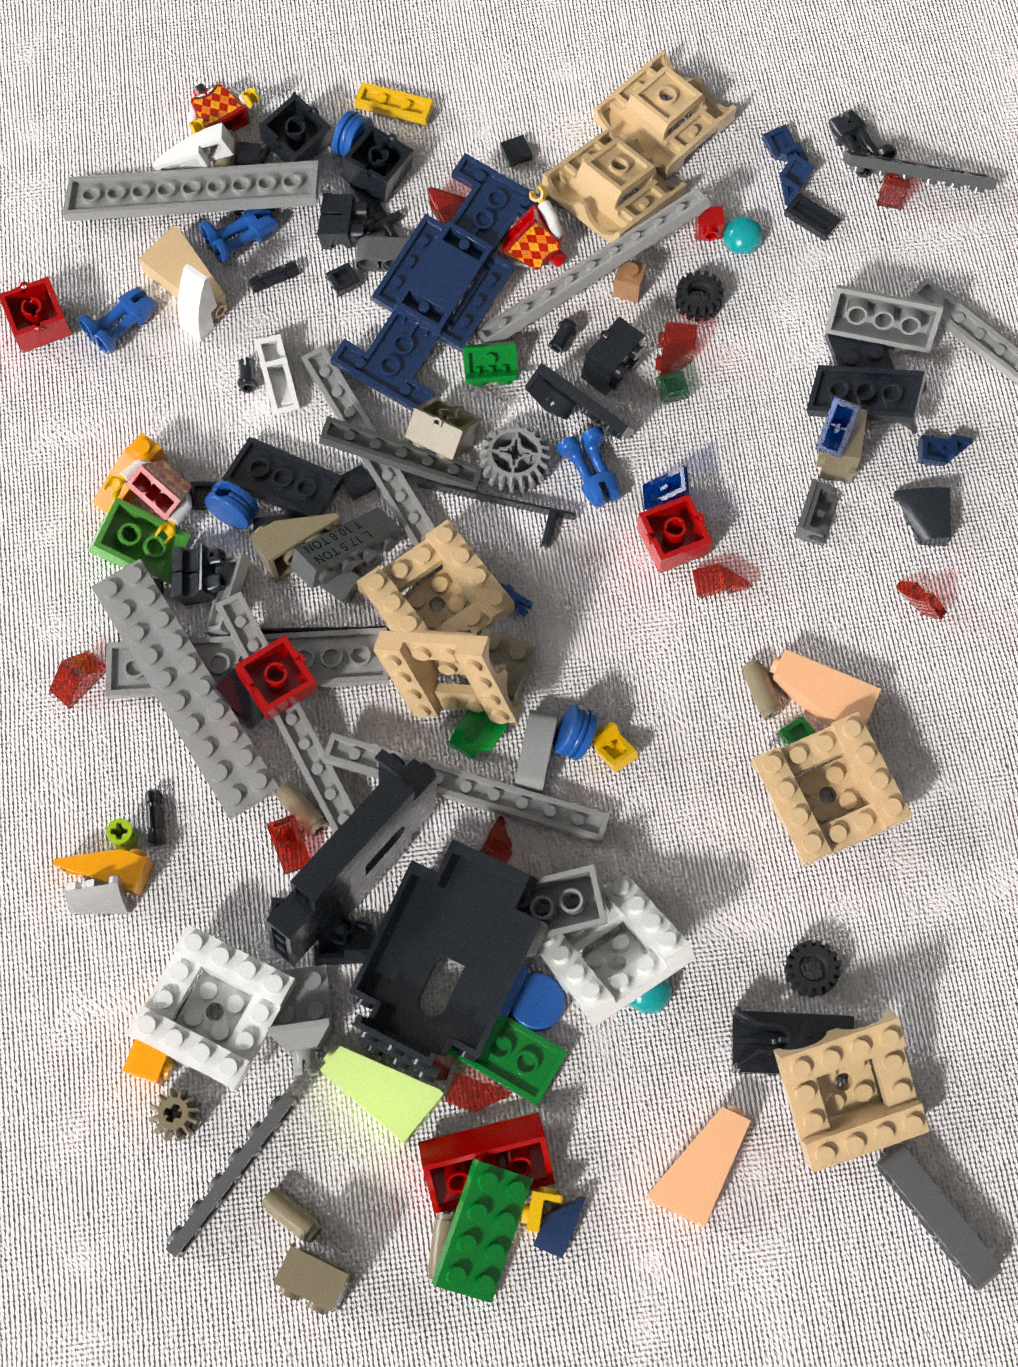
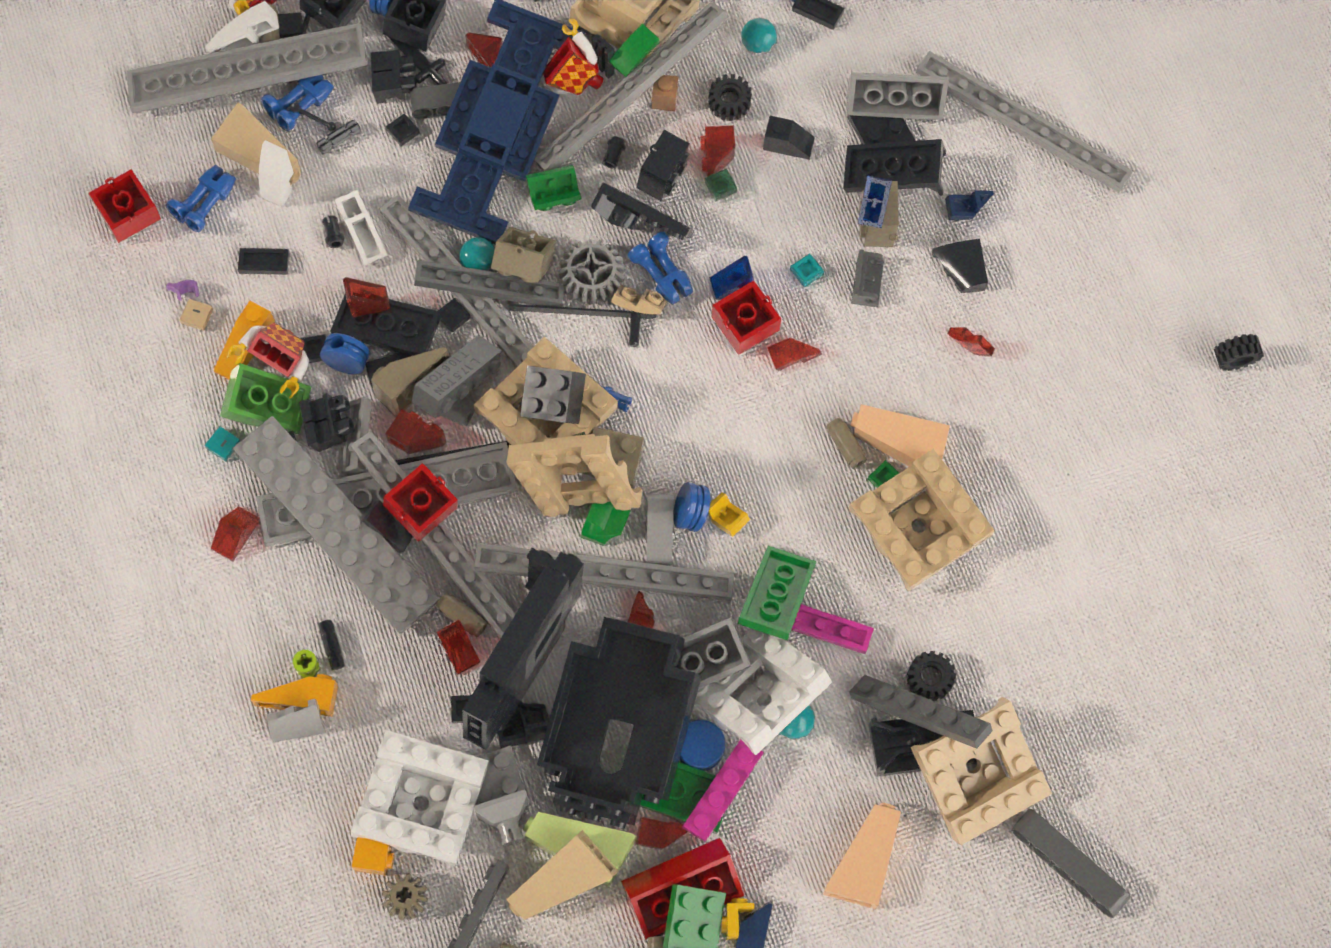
camera: 15 degrees left, 0 degrees up
(79, 409) = (183, 287): none -> medium lavender piece
(83, 579) = (222, 443): none -> teal tile
(86, 440) = (196, 314): none -> tan tile
(169, 395) = (263, 261): none -> black tile
(233, 239) = (294, 107): none -> black hinge
(264, 447) = (365, 297): none -> clear red slope
(288, 603) = (413, 434): none -> clear red slope
(357, 1125) = (567, 874): none -> tan slope
(394, 420) = (477, 254): none -> teal hair
(443, 583) = (553, 394): none -> brick
(549, 1061) = (722, 791): none -> dark pink plate
(571, 231) = (599, 45): none -> black tile
(571, 501) = (649, 303): none -> tan slope
(603, 228) = (634, 49): none -> green slope
(653, 845) = (777, 593): none -> green plate
(696, 888) = (833, 629): none -> dark pink plate
(710, 224) = (728, 31): red plate -> none
(751, 493) = (807, 270): none -> teal tile
(754, 348) = (787, 138): none -> black slope
(794, 1011) = (921, 711): none -> dark grey plate

